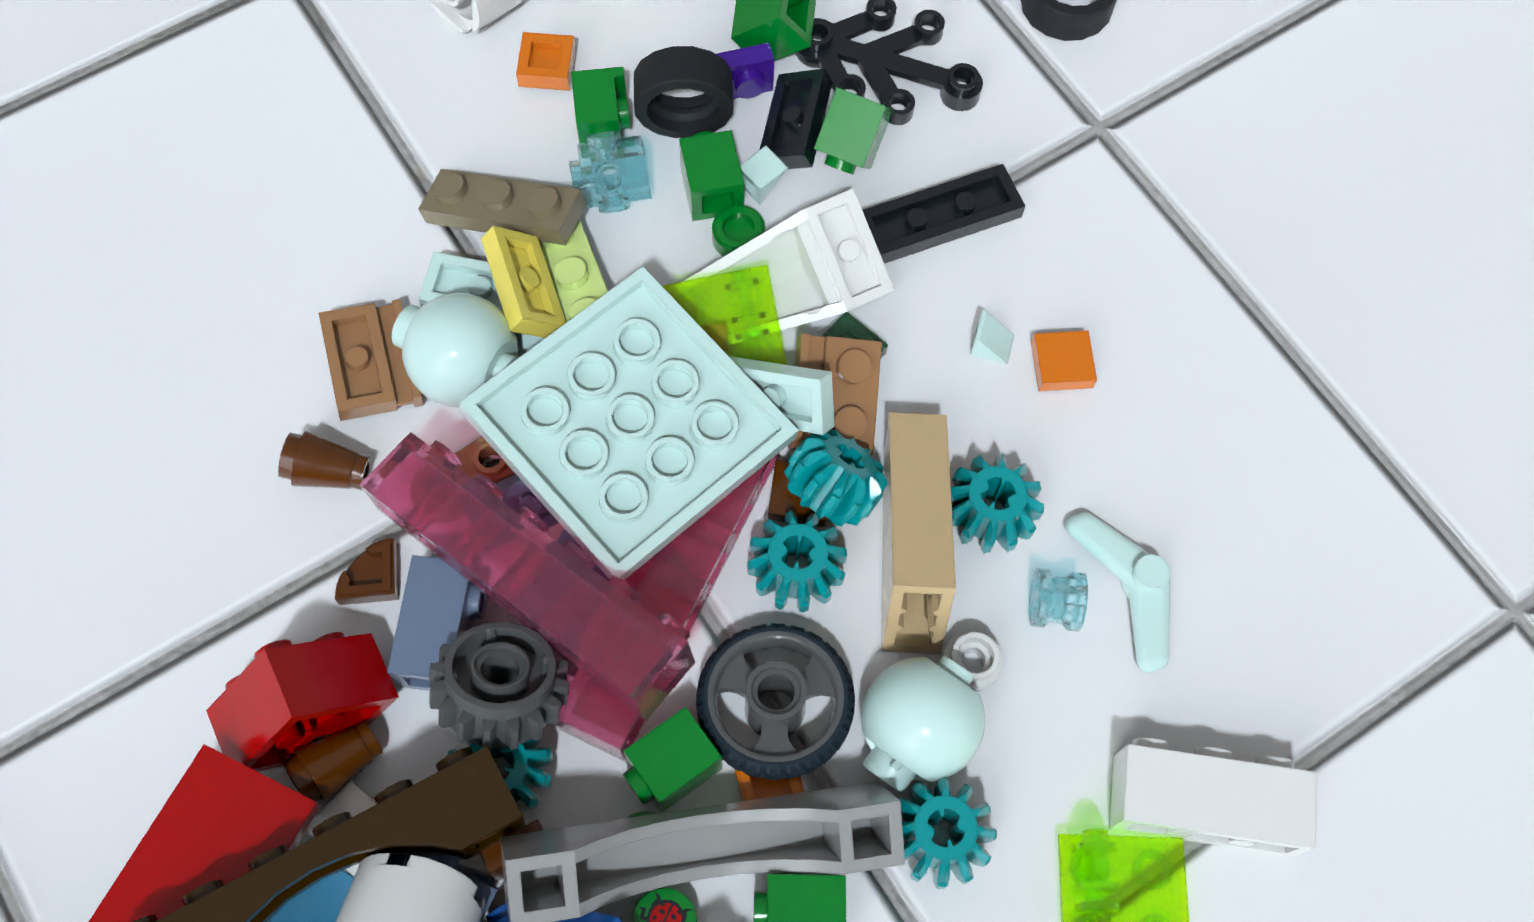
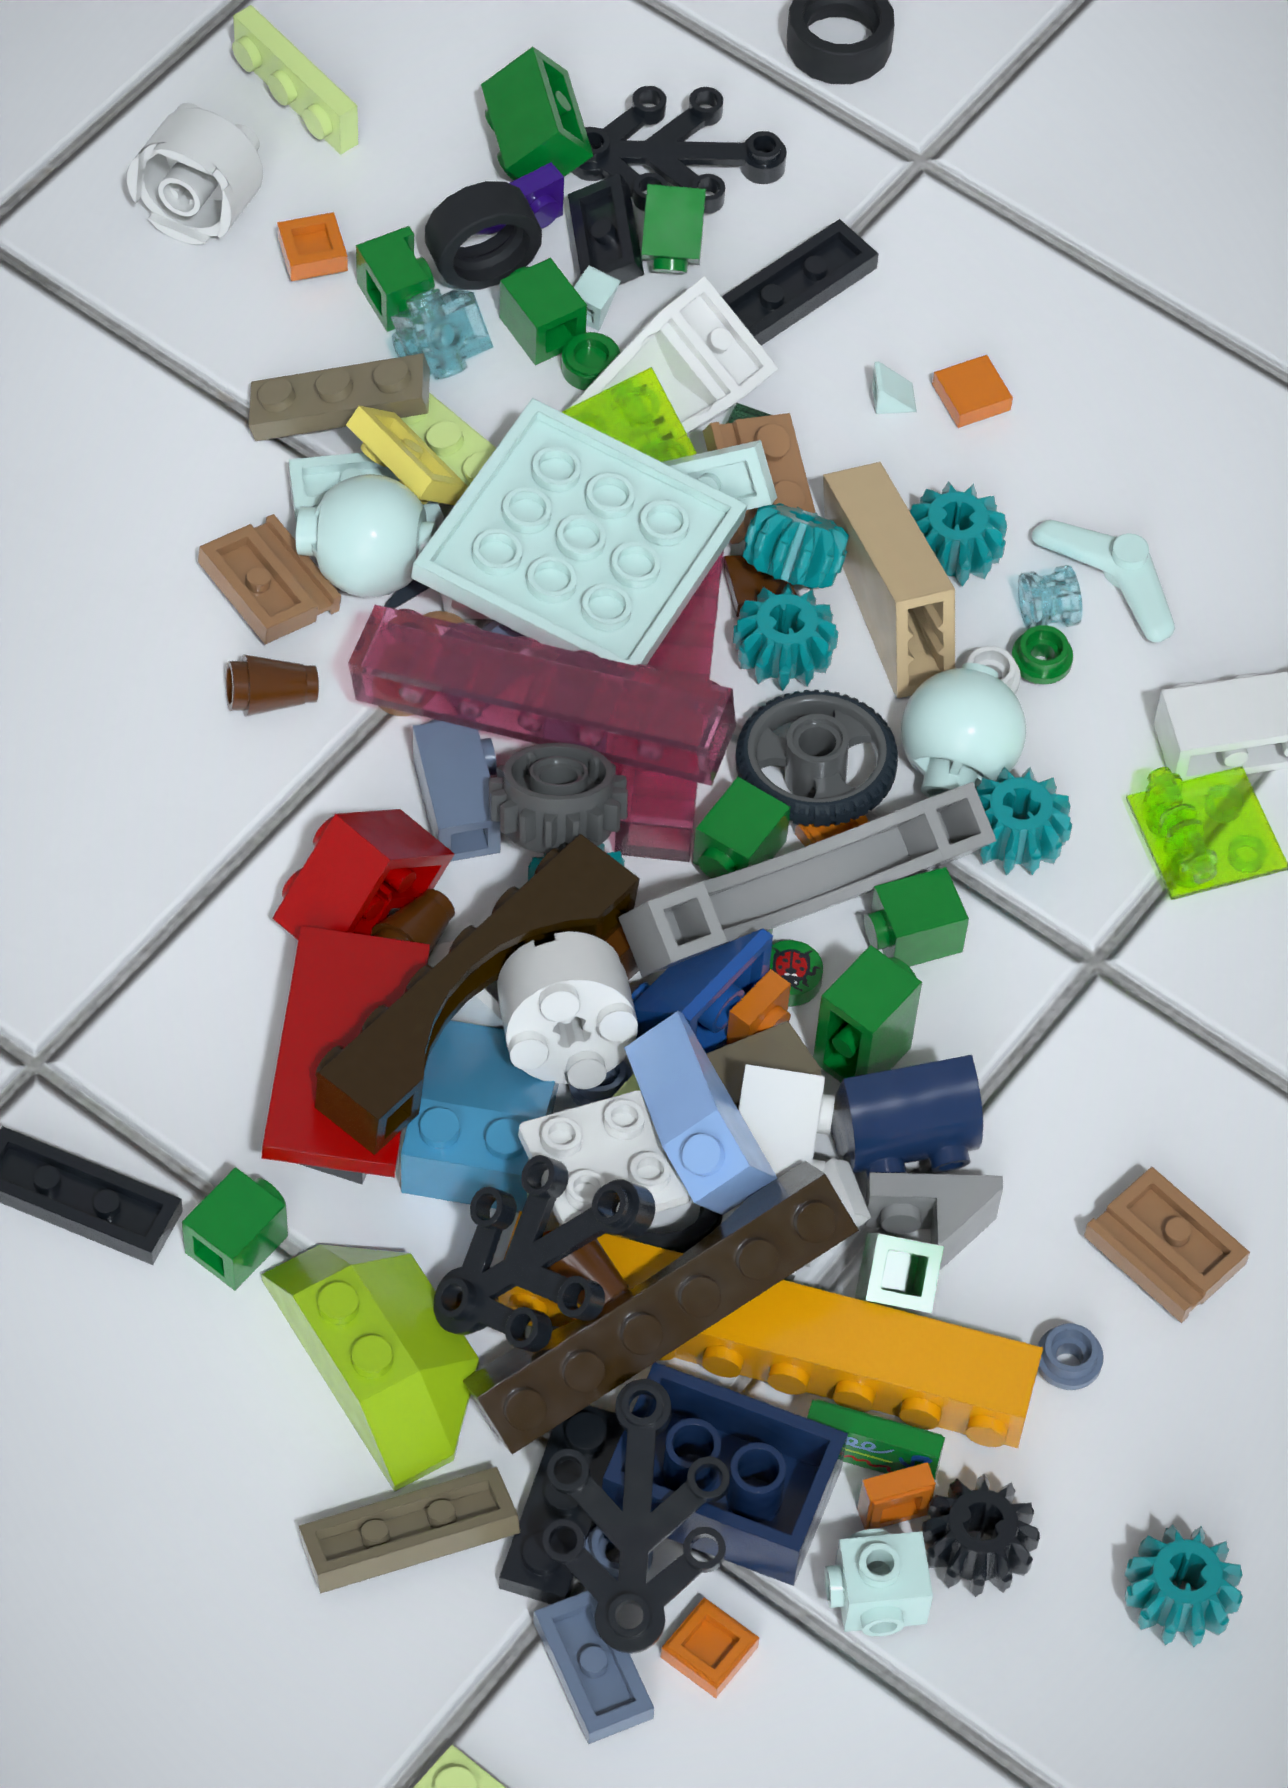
camera: 20 degrees left, 10 degrees down
(371, 576) = (365, 773): reddish brown tile -> none
(1041, 641) = (1043, 642): none -> green plate

